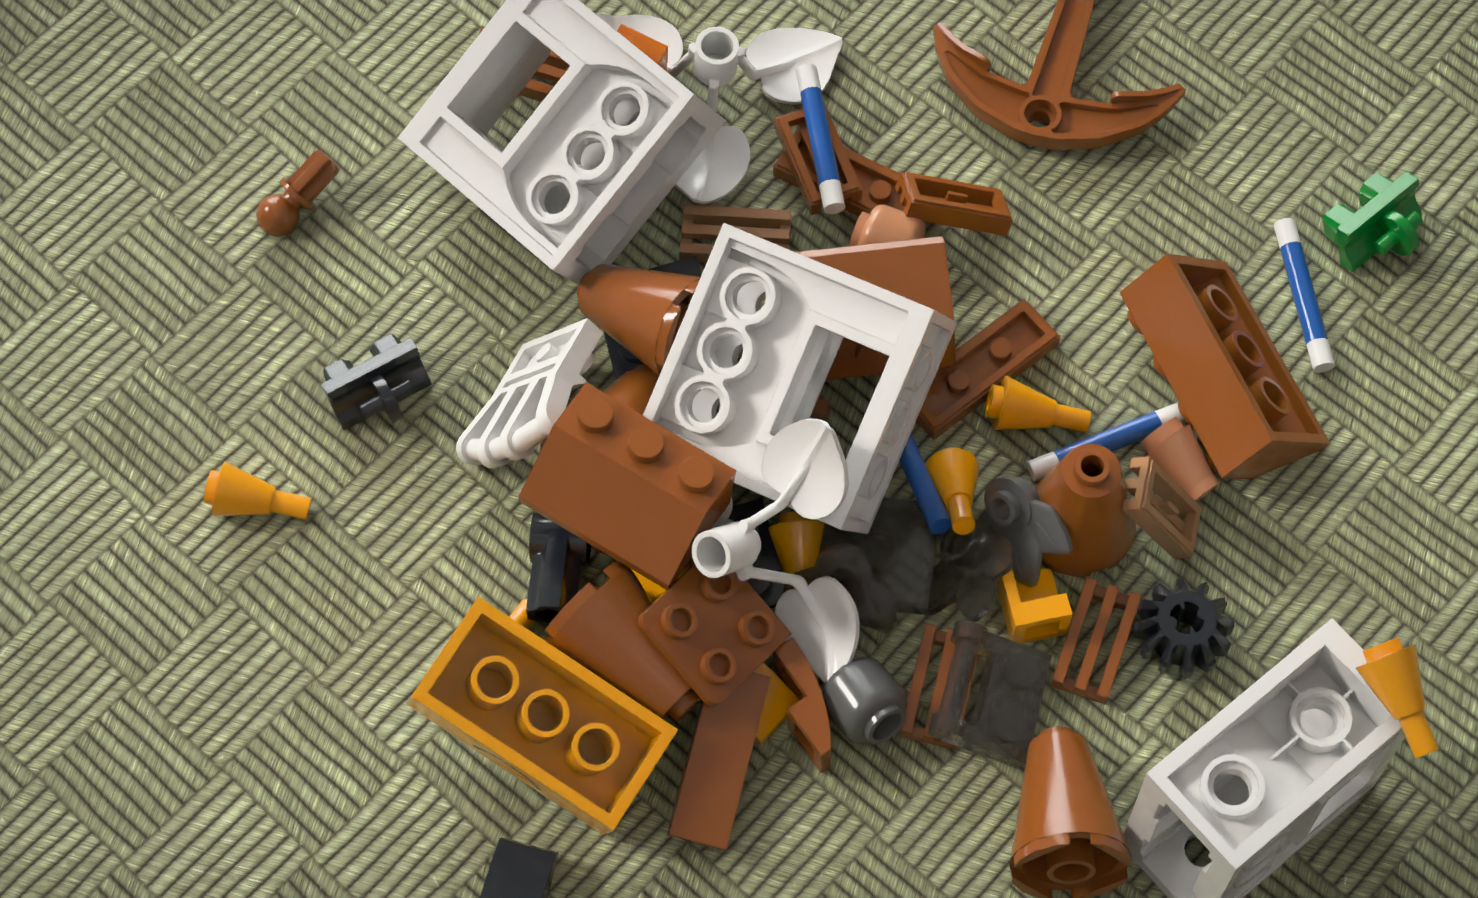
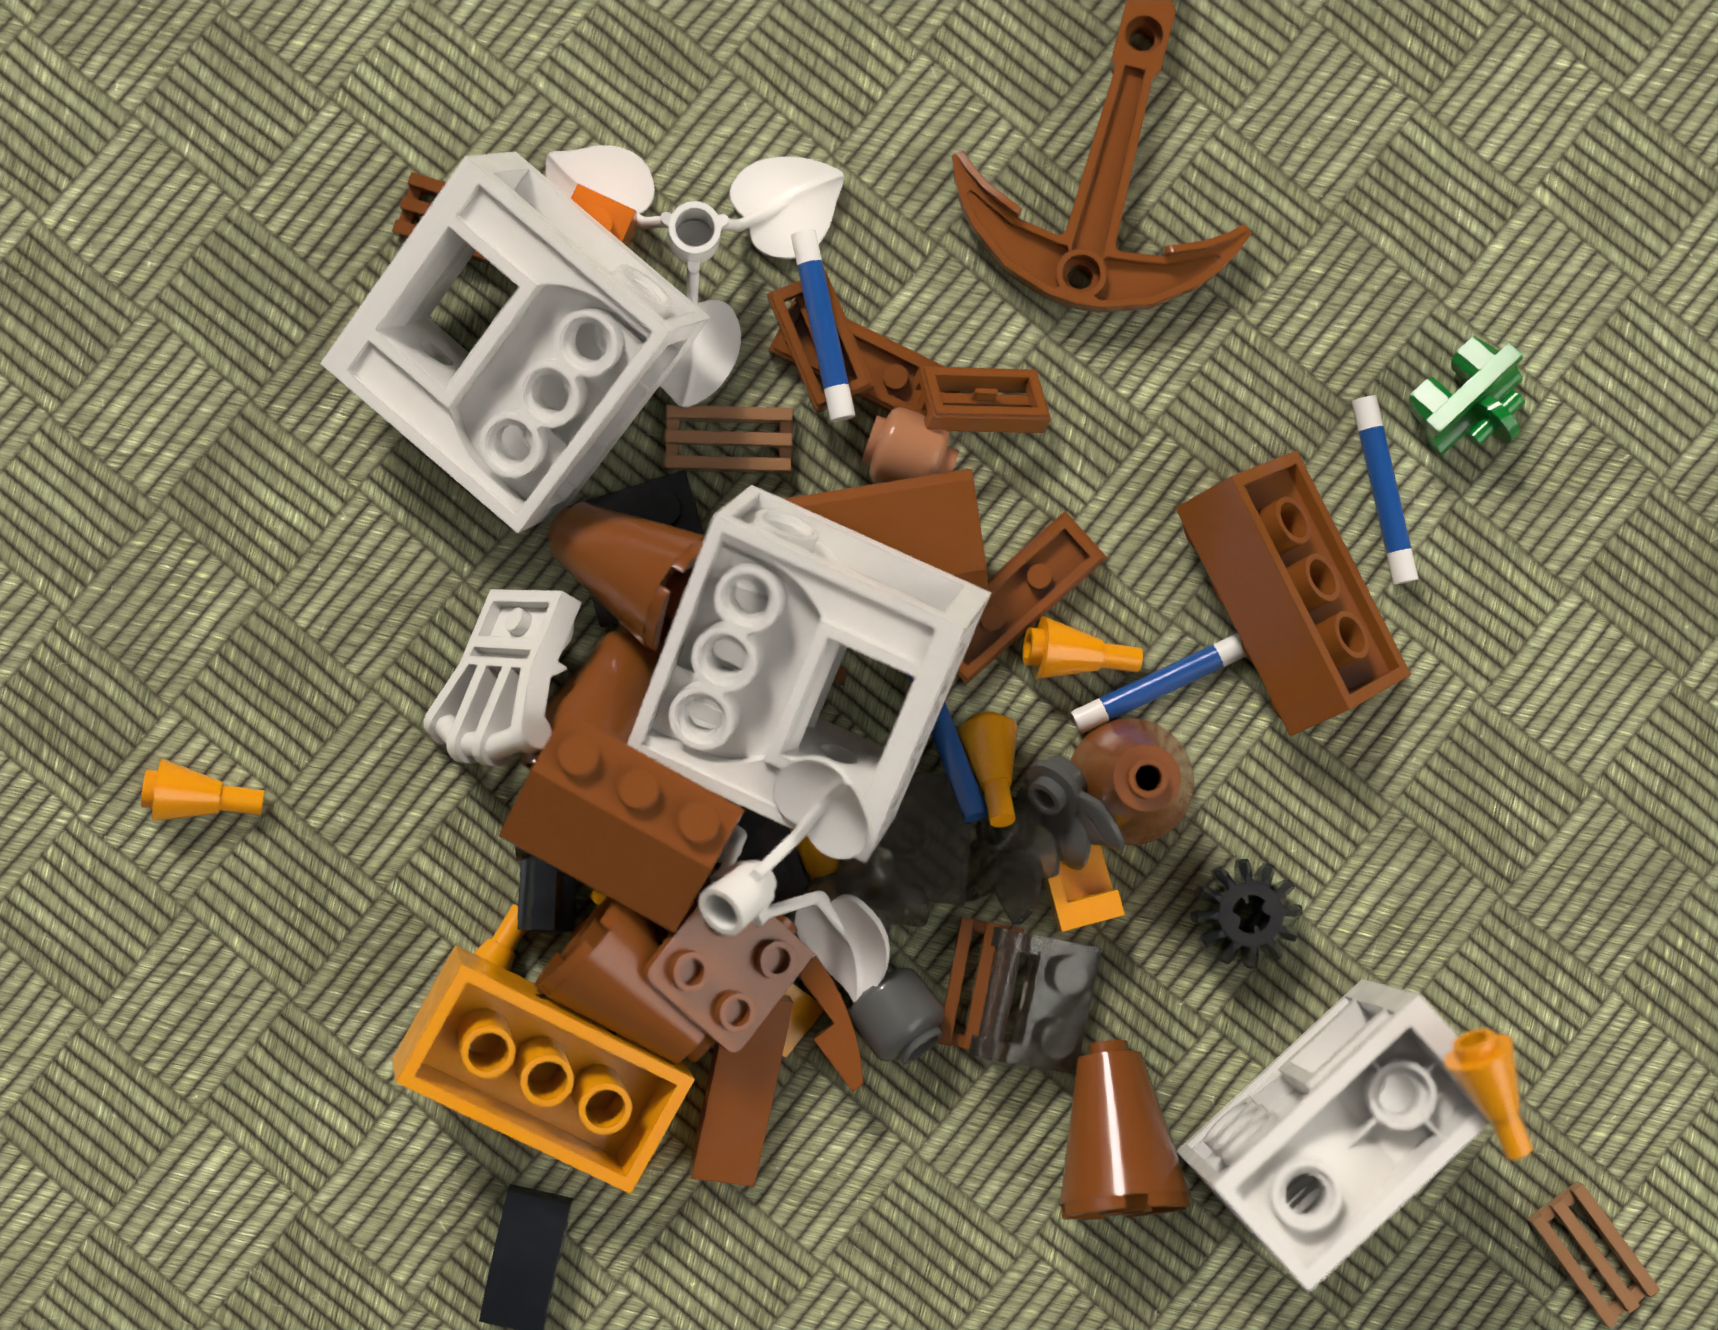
camera: 10 degrees left, 20 degrees up
(280, 212) = (193, 427): dark orange axle -> none
(376, 383) = (328, 655): black hips -> none
(1109, 597) = (1173, 934): dark orange tile -> none
(1157, 516) = (1207, 778): medium nougat tile -> none
(1181, 458) = (1242, 706): nougat cone -> none

